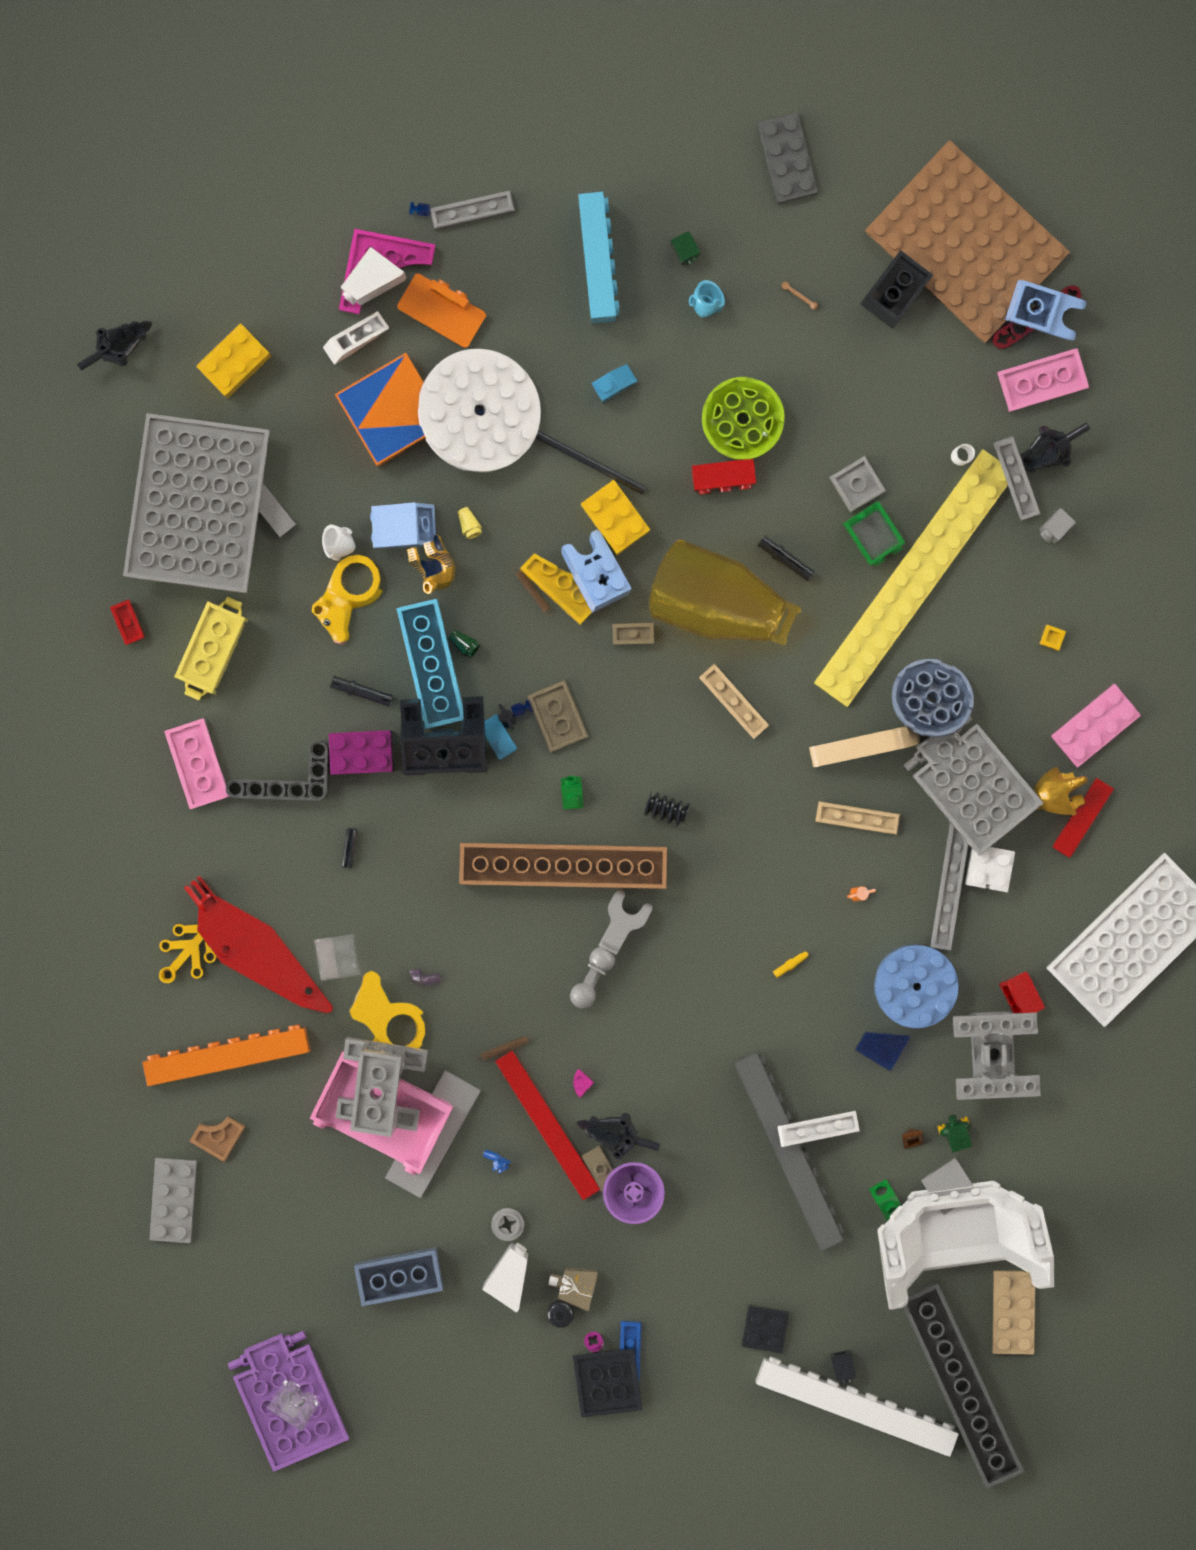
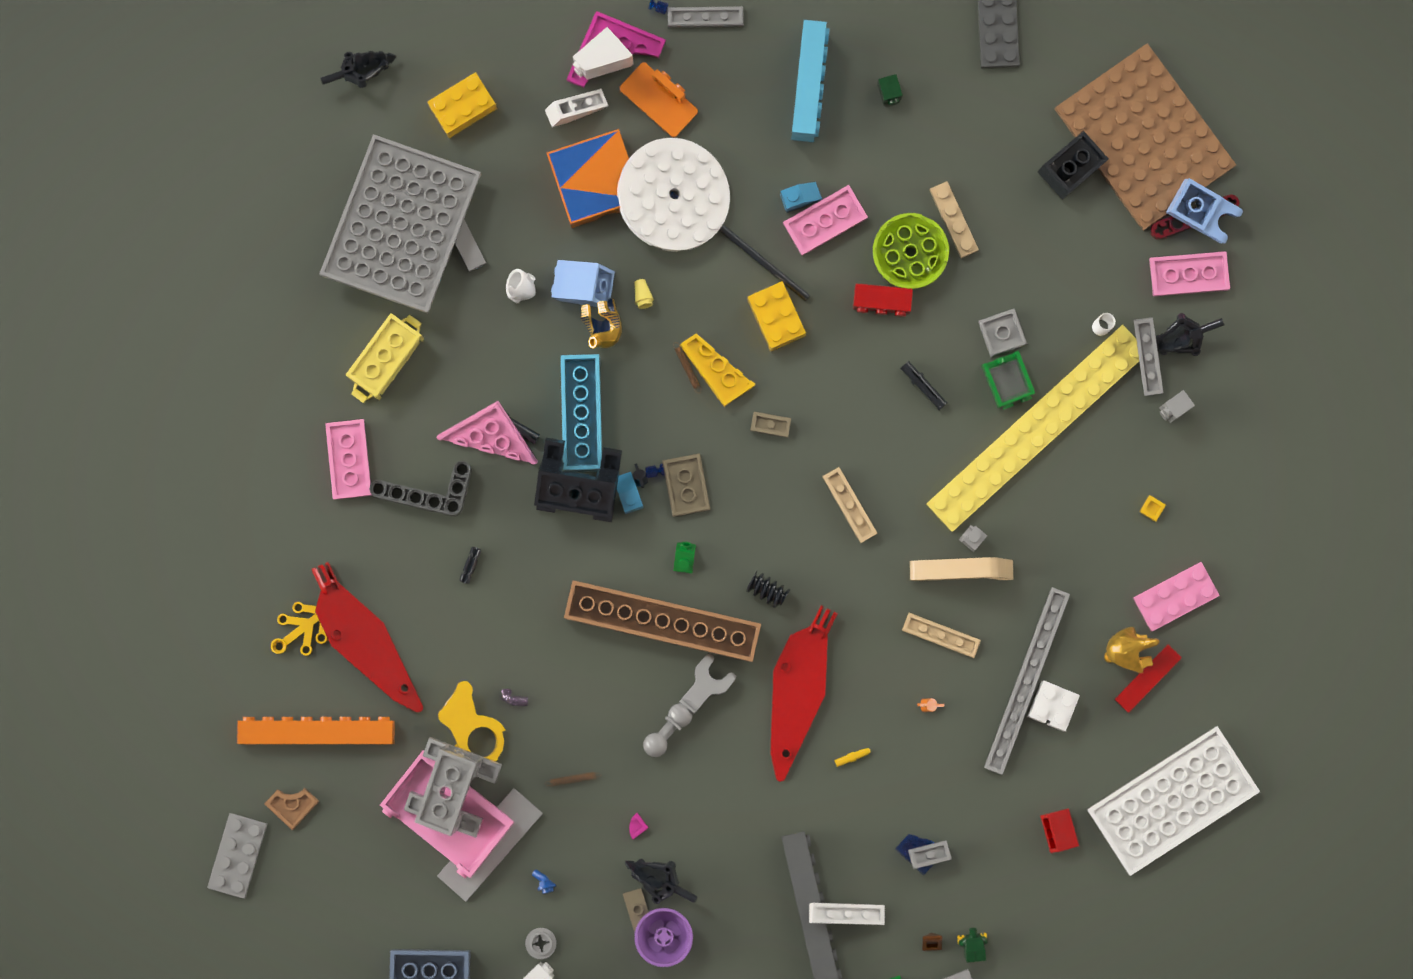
camera: 10 degrees right, 5 degrees down
(127, 622) = (314, 318): red plate -> none
(337, 604) = (507, 341): yellow animal -> none
(337, 956) = (437, 662): clear slope -> none
(340, 704) = (491, 433): none -> bright pink tile
(361, 752) = (500, 480): magenta brick -> none
(466, 644) = (616, 402): dark green cone -> none
(547, 1125) = (597, 858): red tile -> none
(597, 566) = (747, 357): light blue brick -> none
(645, 403) = (825, 220): none -> bright pink plate
(707, 299) = (900, 138): medium azure helmet -> none
(717, 597) = (854, 405): clear yellow windscreen -> none
(720, 906) = (798, 690): none -> red wing
(781, 373) = (954, 219): none -> tan plate
(786, 286) = (973, 142): medium nougat hinge -> none
(870, 709) = (972, 537): none -> light grey brick
(892, 1049) = (929, 854): none -> light grey plate
(930, 1000) = (982, 806): medium blue piece -> none
(937, 681) = (1043, 528): sand blue brick -> none
(973, 785) = (1053, 625): light grey plate -> none
(995, 1076) = (1018, 899): light grey piece -> none

